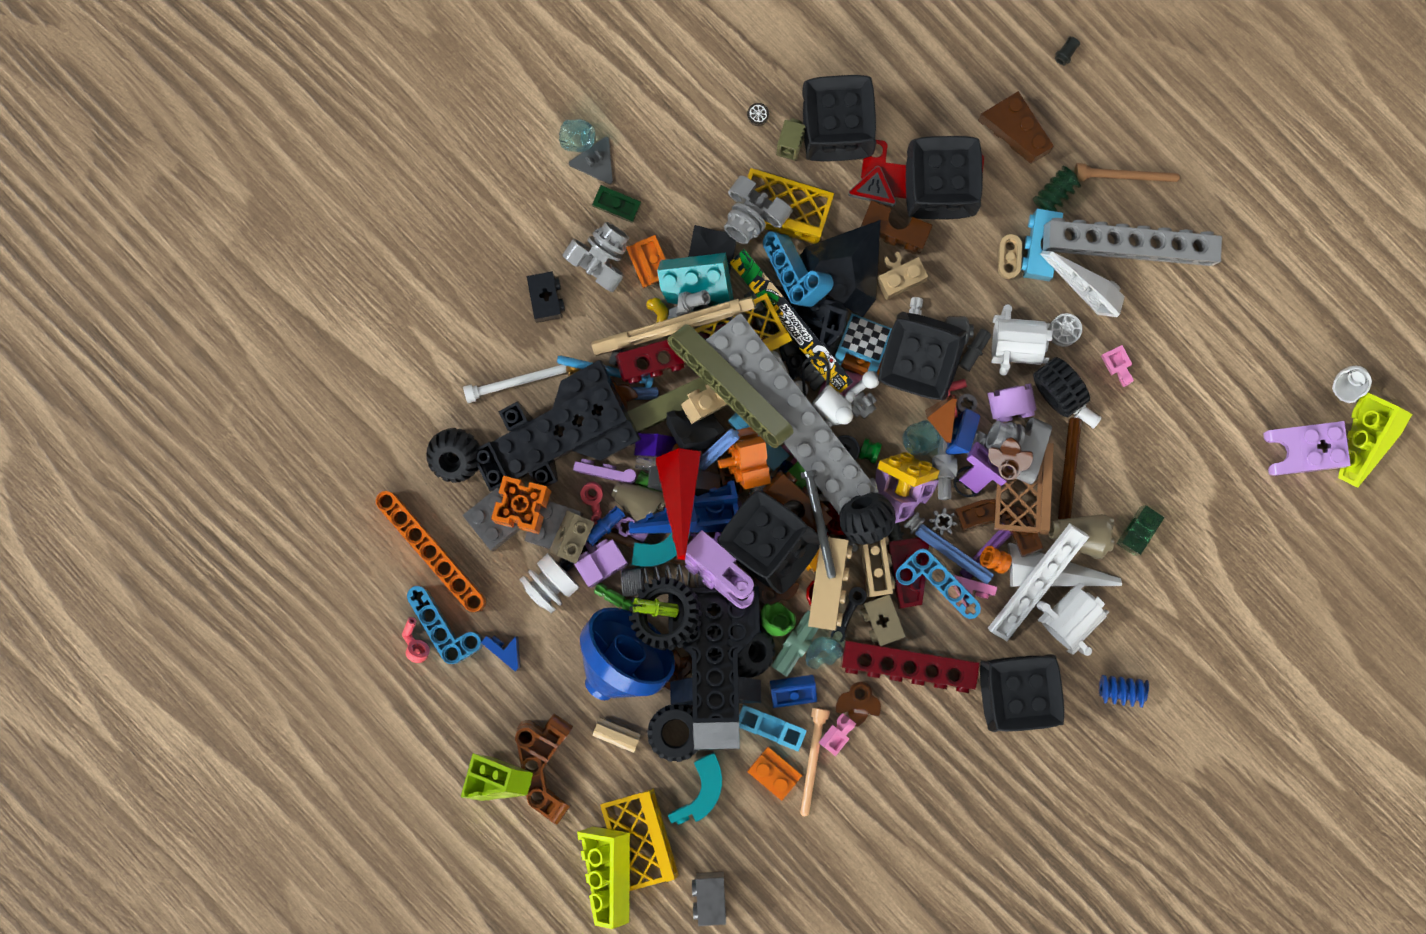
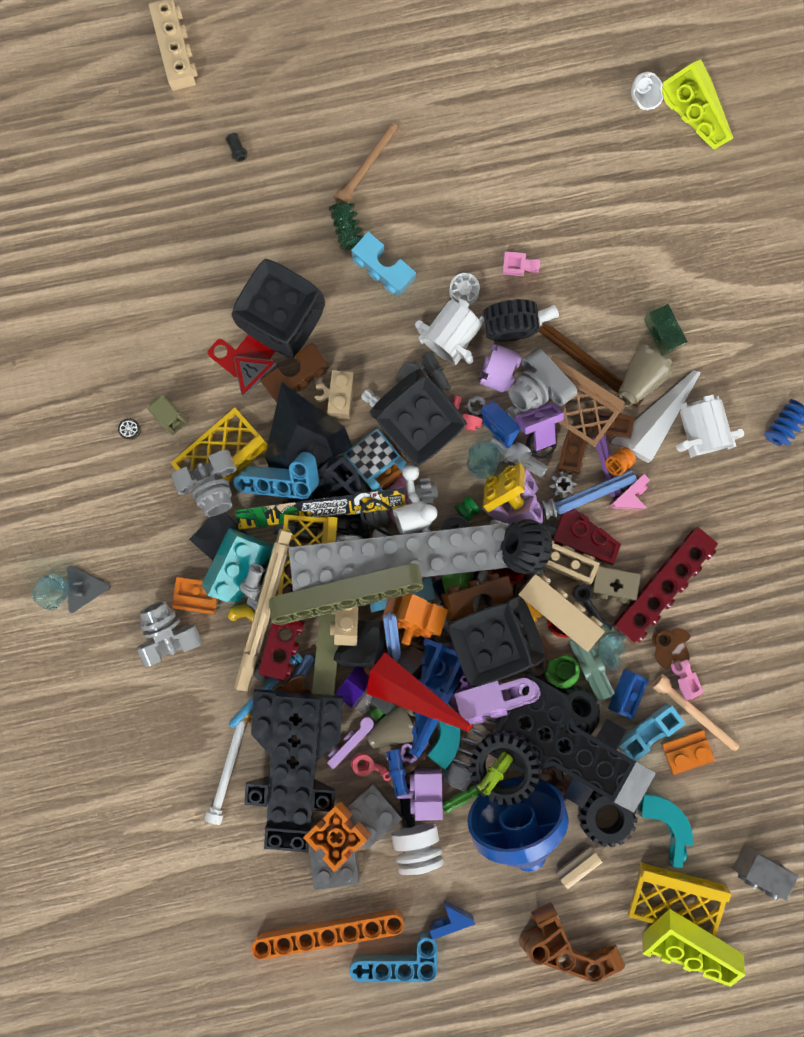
camera: 60 degrees left, 0 degrees up
(417, 650) = (399, 997): coral plate -> none
(444, 463) = (257, 865): black wheel -> none
(494, 779) = (556, 998): lime wedge -> none
(538, 286) = (158, 702): black brick -> none
(571, 537) = (391, 808): dark tan brick -> none
(616, 204) = (130, 593): dark green plate -> none
(819, 521) = (519, 593): dark grey bar -> none
(839, 118) = (174, 363): black piece -> none
(942, 417) = (477, 431): dark orange slope -> none
(943, 585) = (618, 518): dark azure beam -> none
(1010, 257) = (377, 297): tan plate -> none
(1010, 455) = (546, 395): plate -> none
(1018, 127) = (274, 224): reddish brown wedge -> none
(1022, 693) = (746, 507): black piece -> none
(1038, 582) = (661, 437): white tile -> none
(1099, 293) = (448, 245): white wedge -> none
(1208, 243) = (388, 250): light grey brick -> none
(1303, 451) = (680, 162): lavender brick -> none

